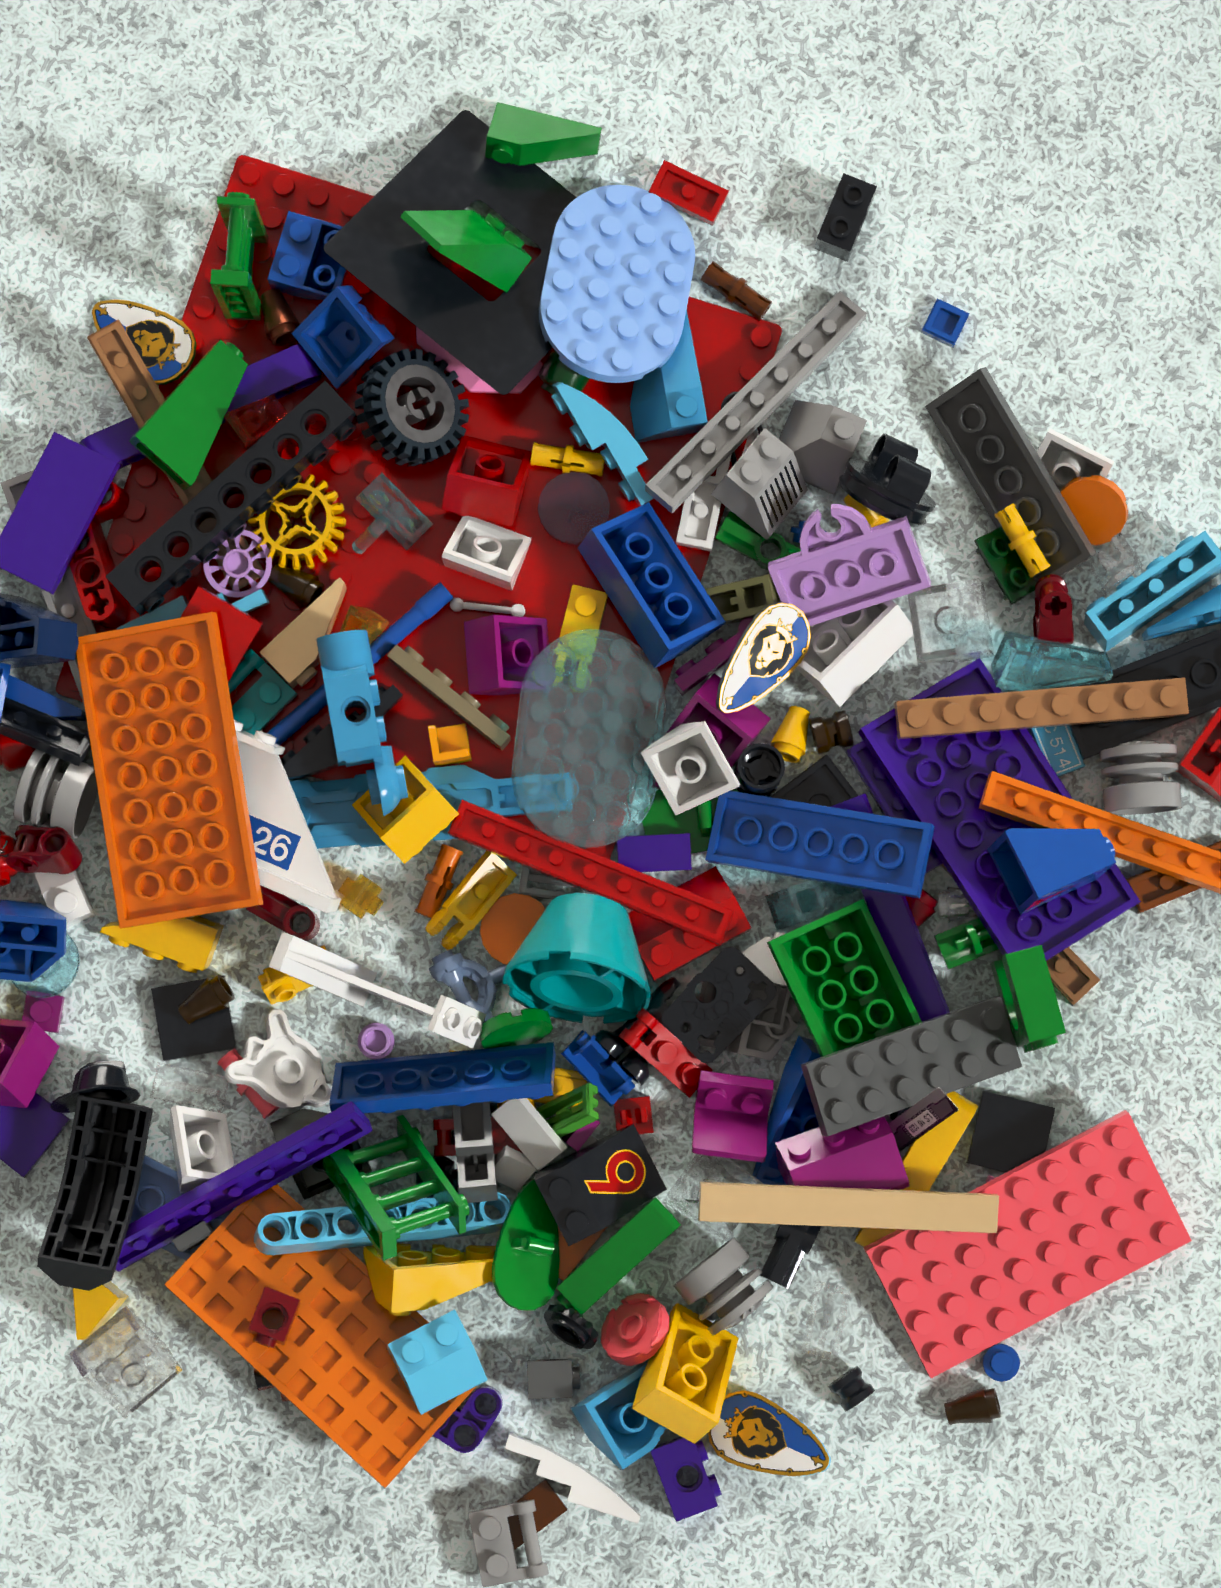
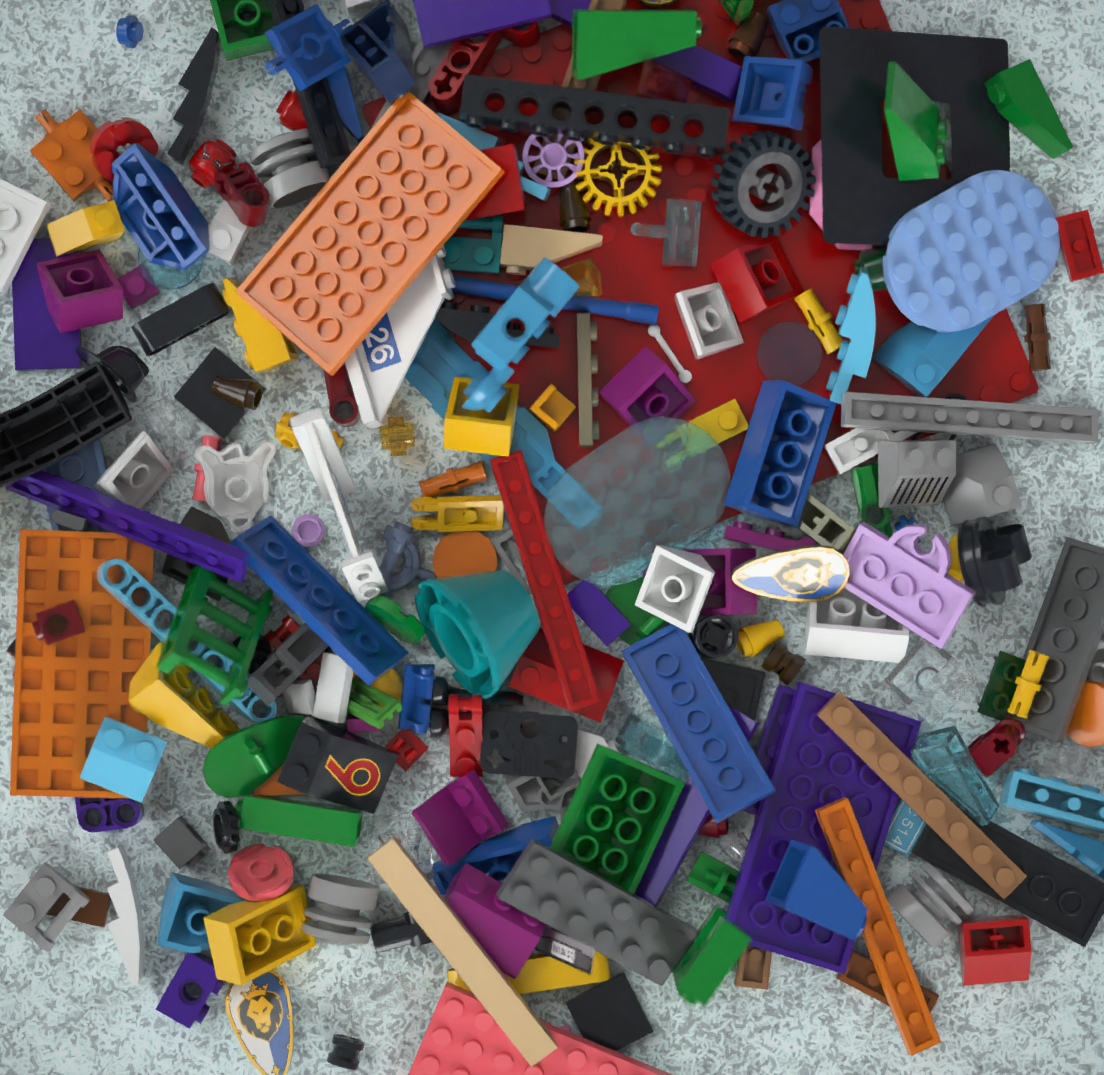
camera: 50 degrees right, 5 degrees up
(102, 998) = (180, 319): none -> black beam

